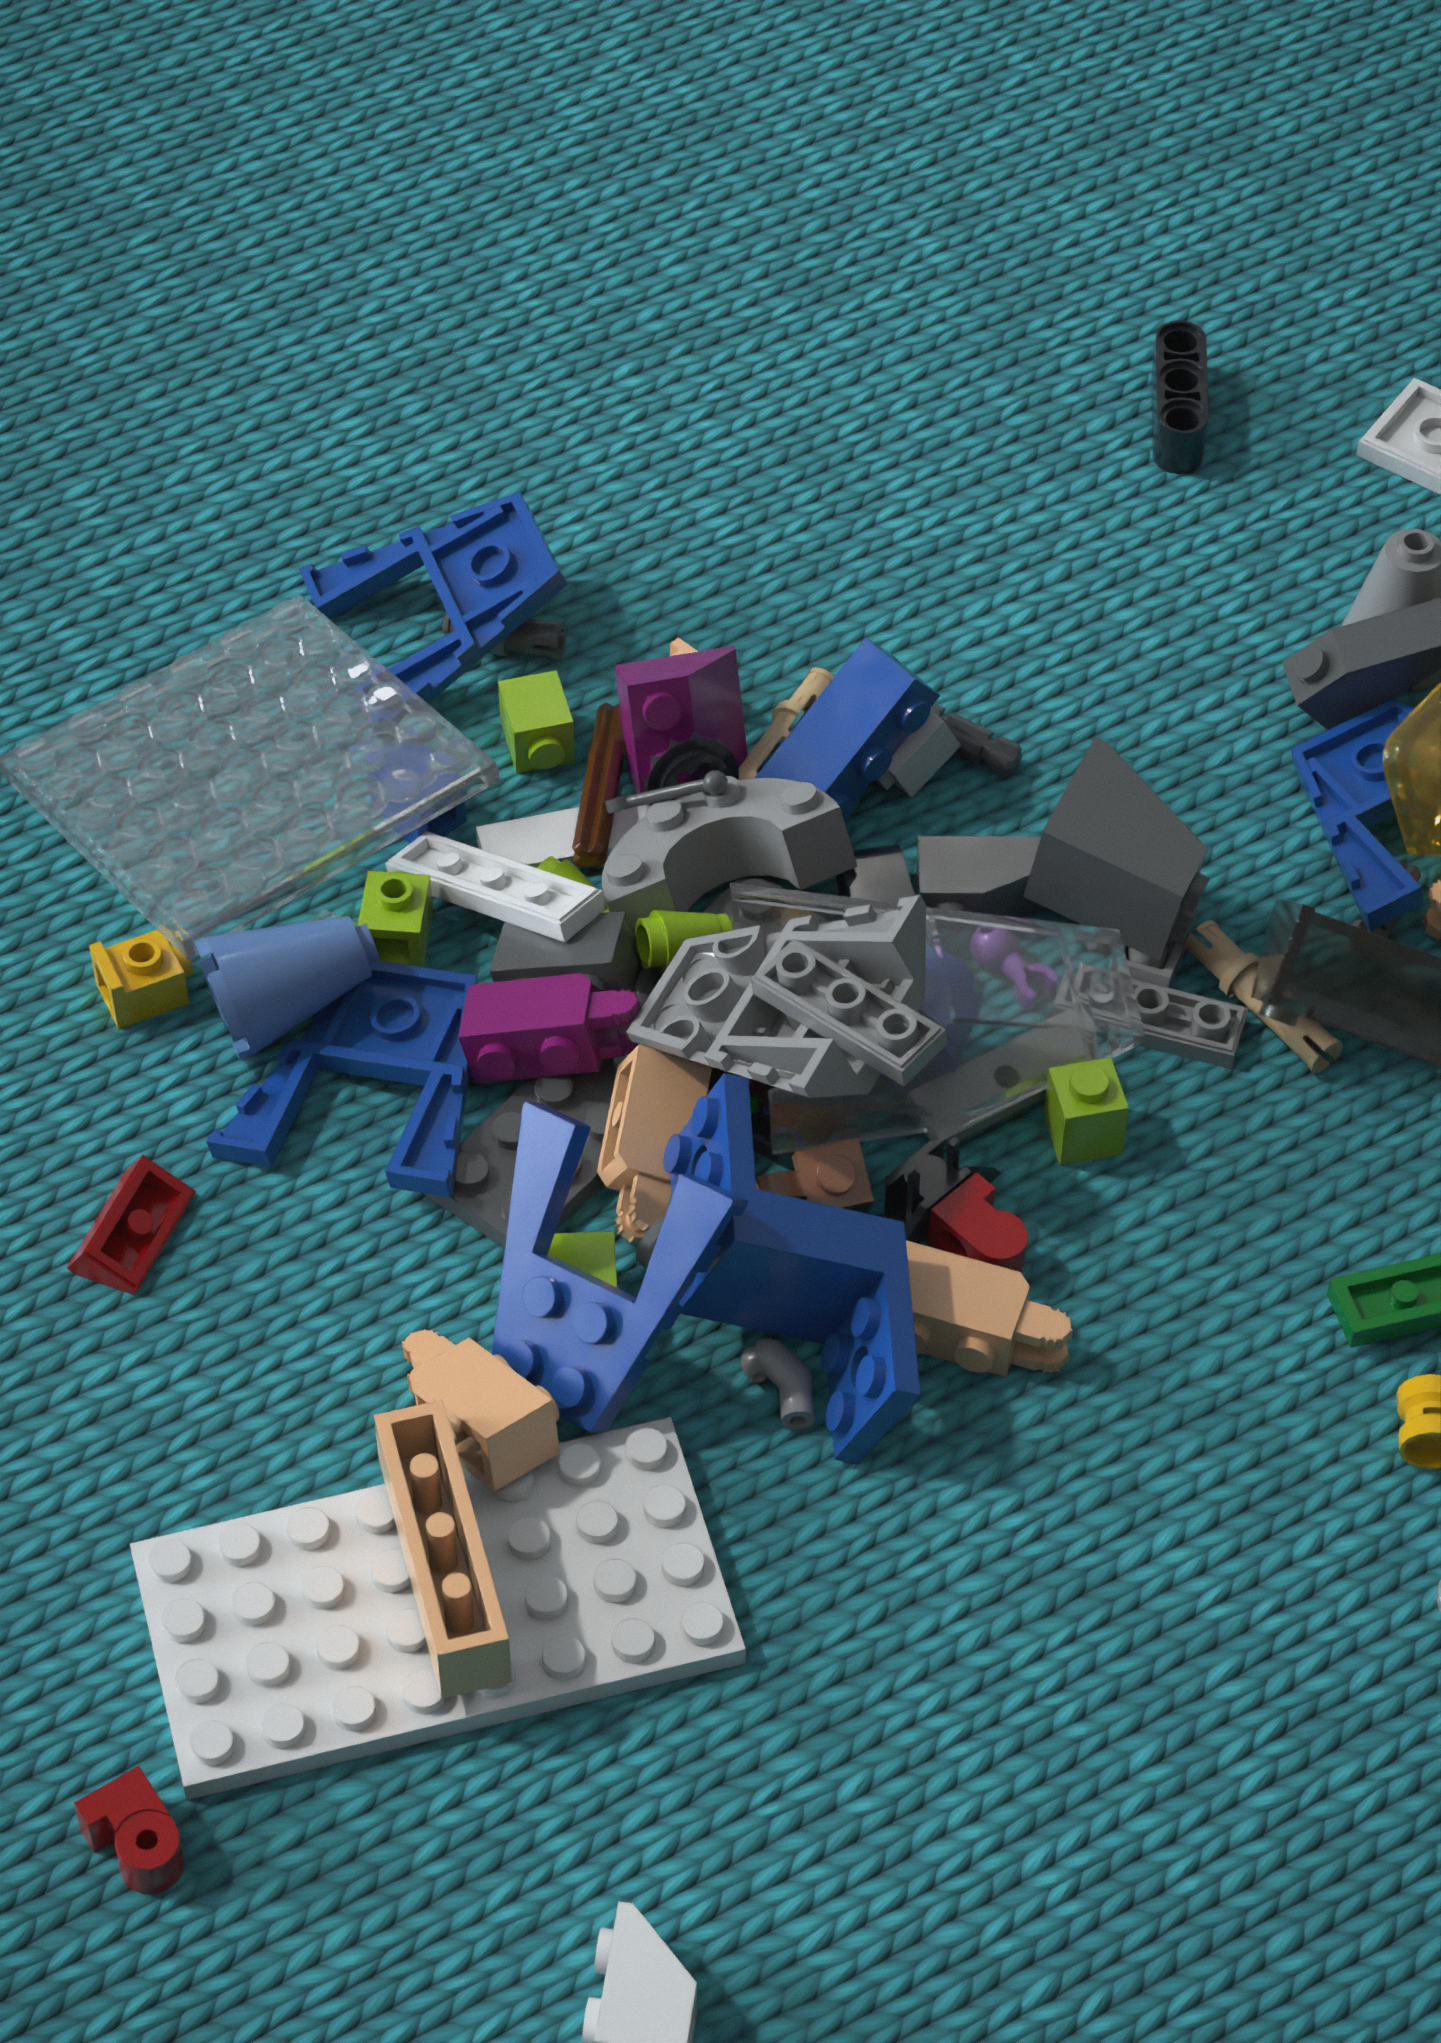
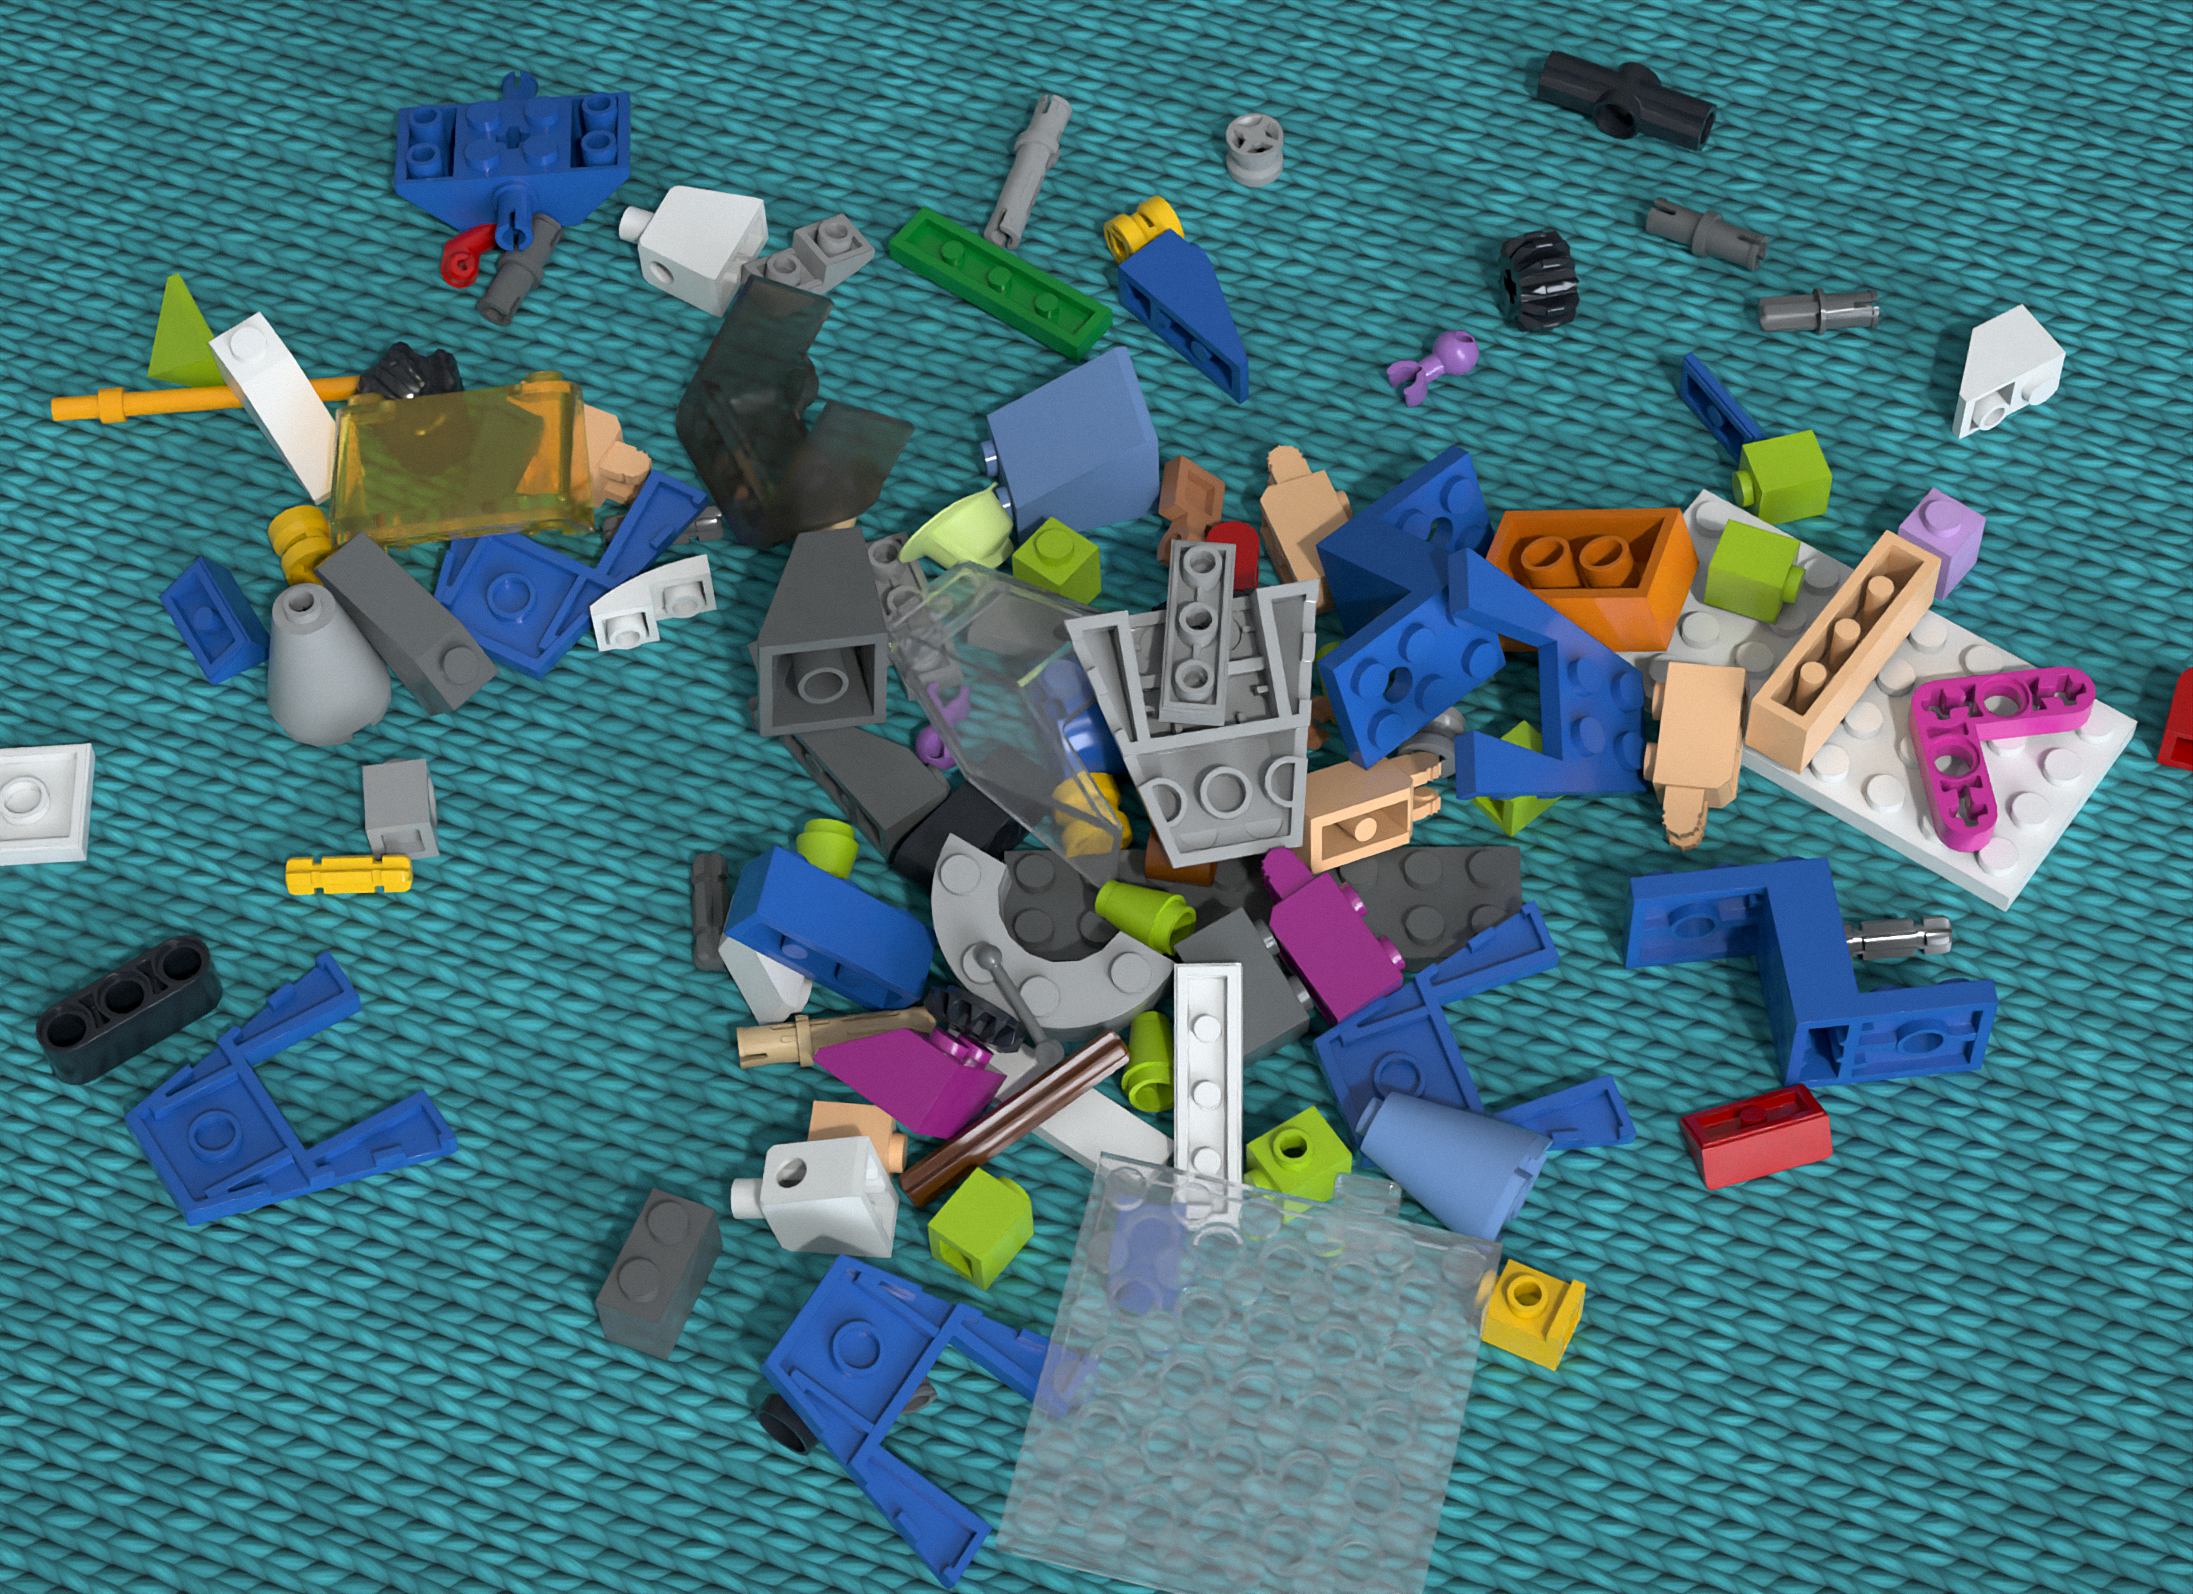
camera: 125 degrees left, 5 degrees up
(190, 1437) = (1899, 937): none -> dark grey axle
(195, 1310) = (1795, 930): none -> blue bracket
(296, 1617) = (1962, 737): none -> dark pink beam
(503, 1771) = (1947, 531): none -> lavender brick
(596, 1565) = (1754, 572): none -> lime brick
(635, 627) = (823, 1198): none -> white torso
(679, 540) = (659, 1274): none -> dark grey brick
(693, 1713) = (1783, 478): none -> lime brick
(704, 1426) = (1603, 569): none -> orange brick
(811, 1740) = (1718, 407): none -> blue slope
(861, 1914) = (1818, 311): none -> dark grey axle
(937, 811) = (829, 846): none -> lime cone
(1023, 396) = (228, 1146): none -> blue wing
(1042, 1892) = (1707, 234): none -> dark grey pin
(1079, 1251) = (1191, 501): none -> nougat plate
(1079, 1567) = (1452, 354): none -> medium lavender arm
(1090, 1670) = (1538, 281): none -> black gear
(1169, 1070) = (967, 529): none -> yellowish green piece
(1196, 1199) = (1076, 450): none -> medium blue slope
(1199, 567) = (349, 874): none -> yellow axle
(1226, 610) = (401, 809): none -> light grey brick
(1276, 1954) = (1627, 100): none -> black piece
(1296, 835) = (630, 611): none -> white slope
(1309, 1396) = (1180, 300): none -> blue slope

